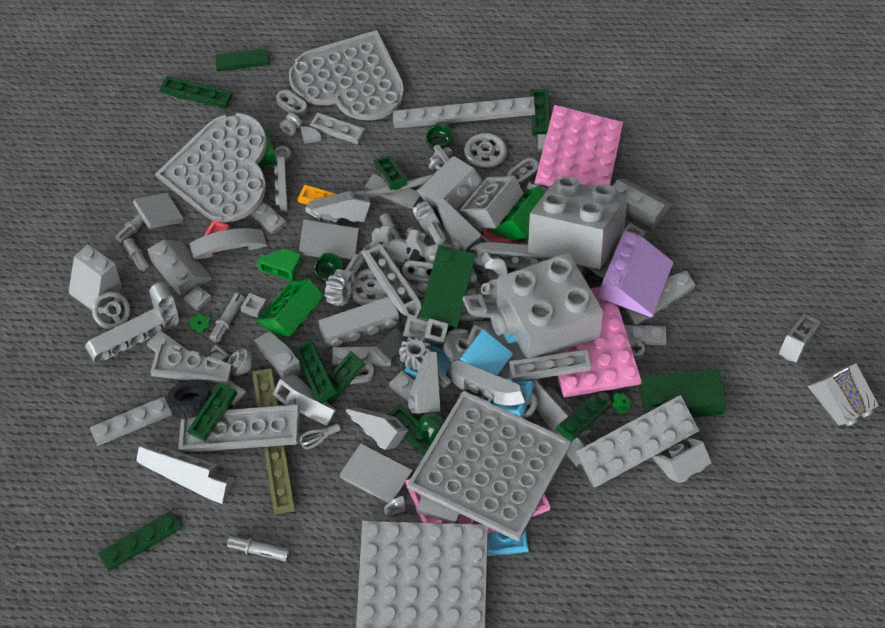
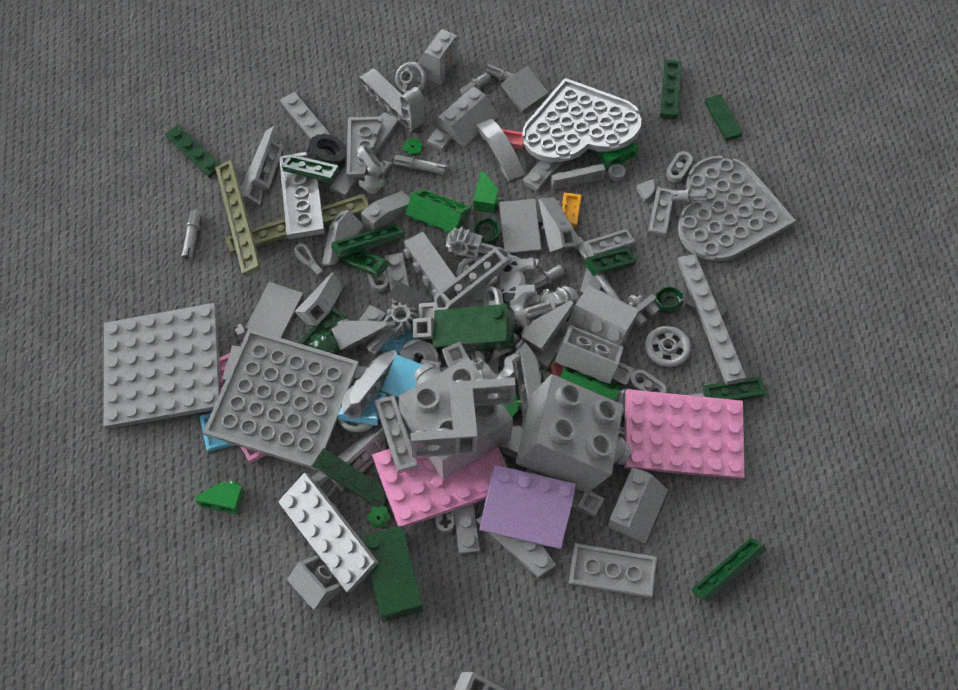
camera: 80 degrees right, 5 degrees up
(212, 355) = (367, 156): none -> light grey plate
(253, 305) = (437, 182): light grey plate -> none
(254, 492) = (238, 219): none -> olive plate
(290, 124) = (652, 170): light grey wheel -> none
(332, 98) = (689, 195): none -> light grey axle
(367, 172) = (609, 243): none -> light grey tile
(576, 274) = (463, 399): none -> light grey bracket
(585, 534) = (222, 497): none -> green slope
(694, 231) = (613, 570): none -> light grey tile
(705, 149) = (728, 570): none -> dark green plate

